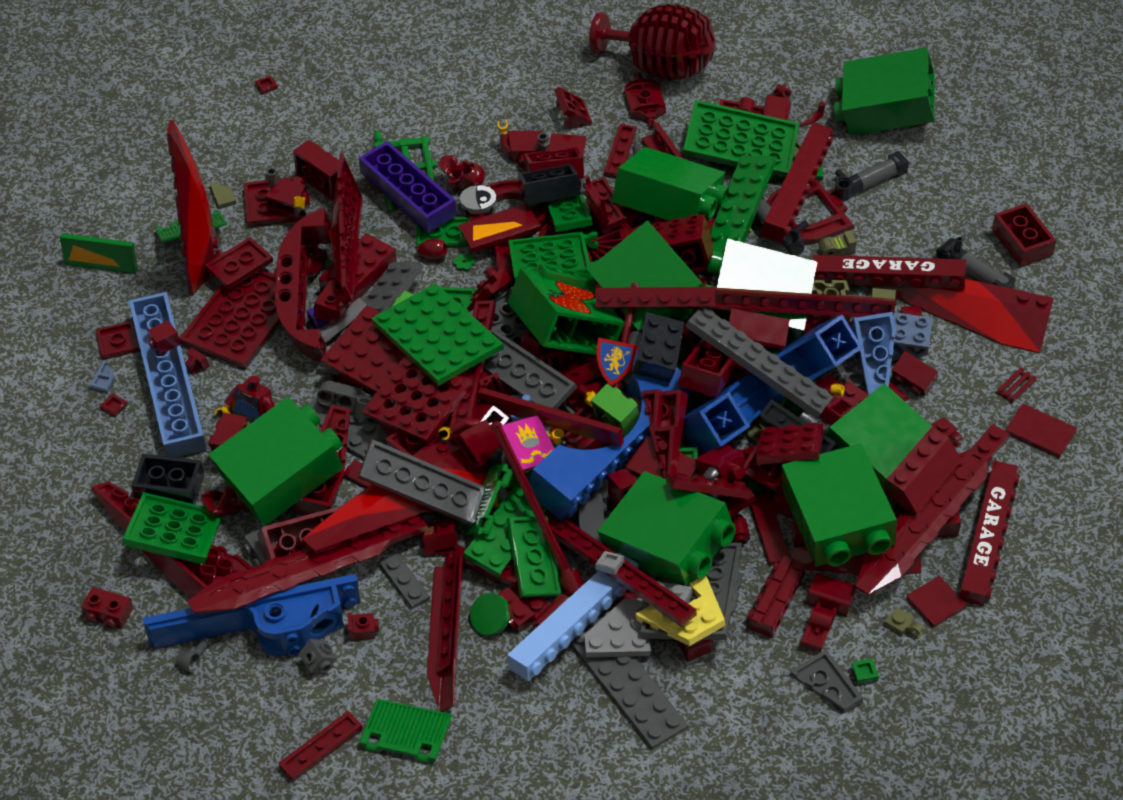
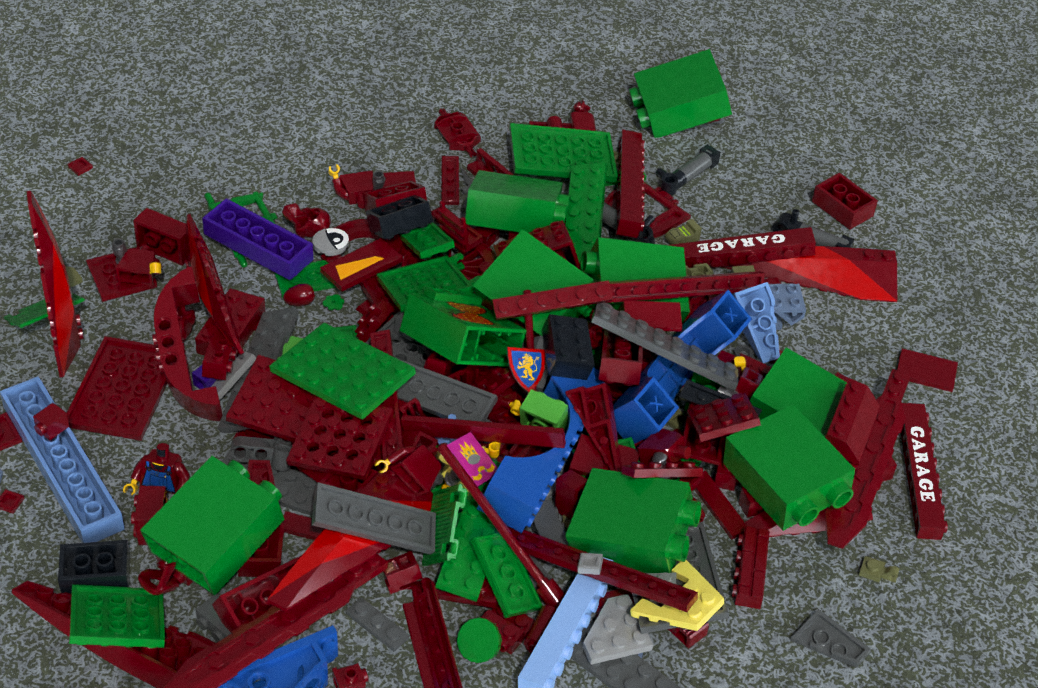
camera: 20 degrees left, 5 degrees down
(196, 361) = (88, 440): dark red tile -> none
(239, 263) = (106, 337): dark red plate -> none
(574, 118) = (393, 146): dark red piece -> none
(663, 41) = (462, 75): dark red plant -> none
(816, 115) = (619, 125): dark red bar -> none
(829, 598) = (803, 561): dark red plate -> none
(864, 671) = (860, 623): green plate -> none
(914, 374) = (798, 337): dark red brick -> none
(936, 601) = (898, 543): dark red tile -> none
(1031, 380) = (893, 324): dark red tile -> none

